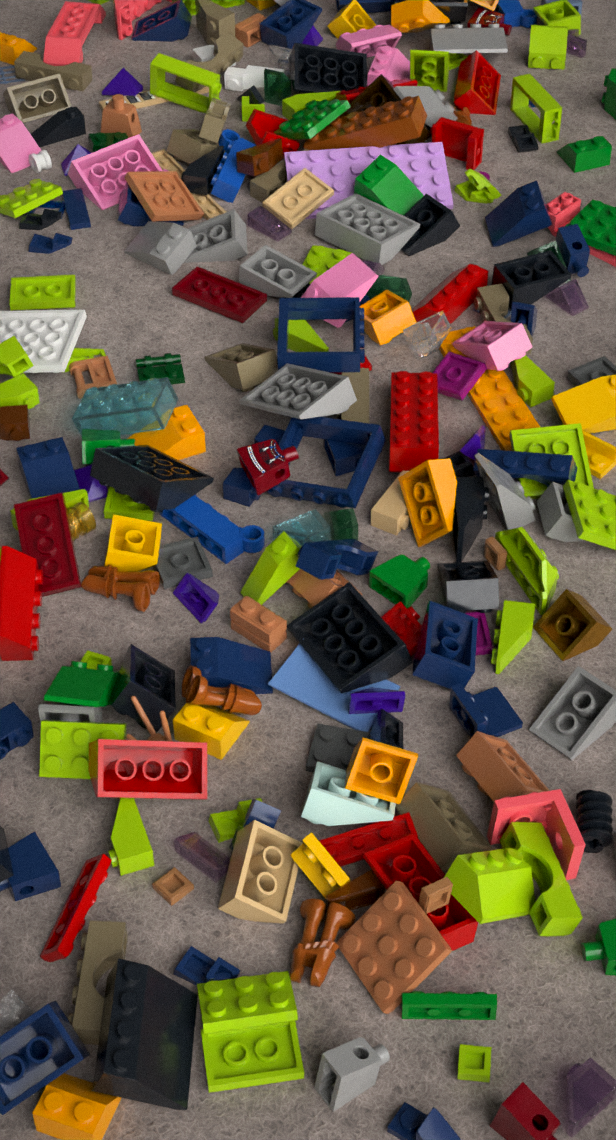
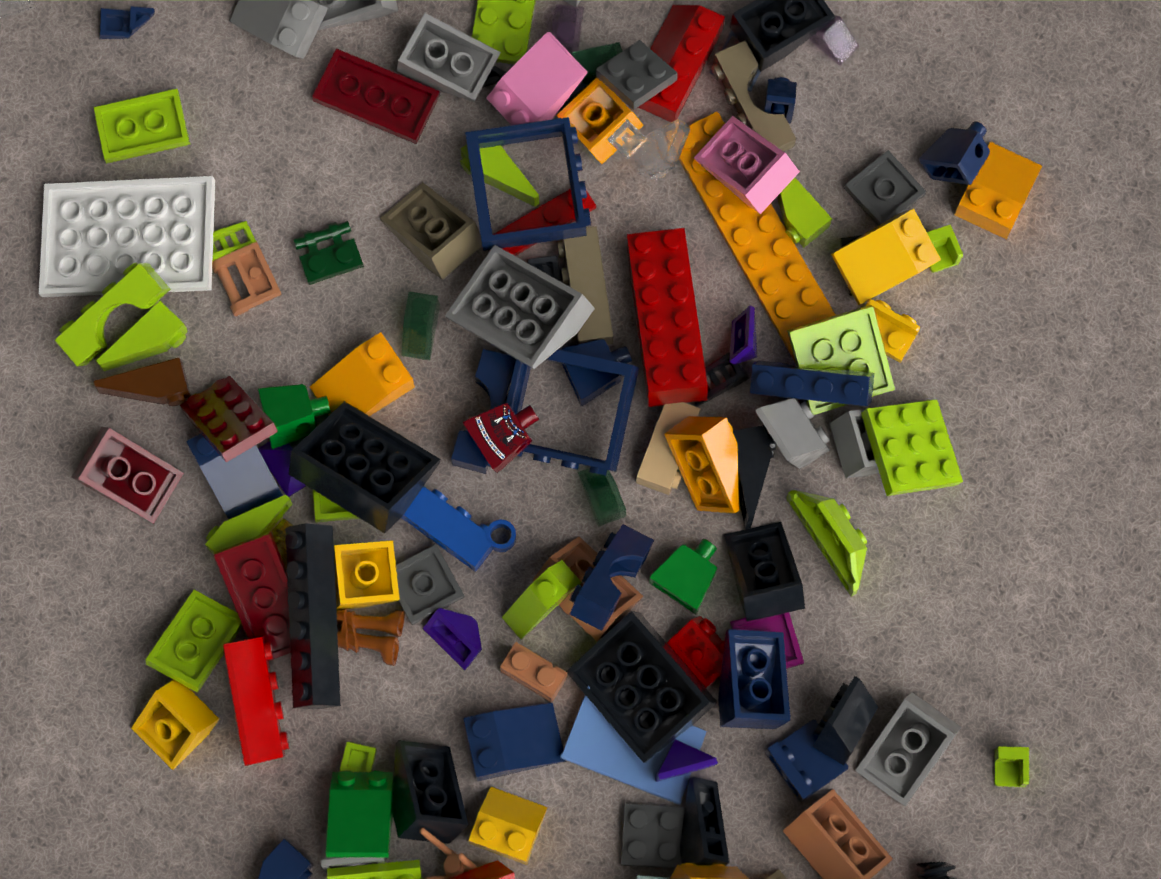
camera: 10 degrees left, 30 degrees up
(53, 431) = (228, 418): none -> plate
(81, 557) = (312, 616): none -> black brick
(127, 407) = (306, 352): clear light blue brick -> none
(219, 411) = (420, 325): none -> clear green slope
(231, 698) = (529, 787): dark orange piece -> none
(305, 528) = (562, 516): clear light blue slope -> none
(402, 320) = (627, 139): none -> clear slope
(415, 286) = (636, 74): none -> dark grey plate
(458, 375) = (706, 215): magenta tile -> none
(495, 553) = (790, 517): medium nougat tile -> none
(515, 632) = (826, 629): lime slope -> none
(523, 680) = (845, 721): none -> black slope
(572, 626) = (889, 617): pearl gold slope -> none

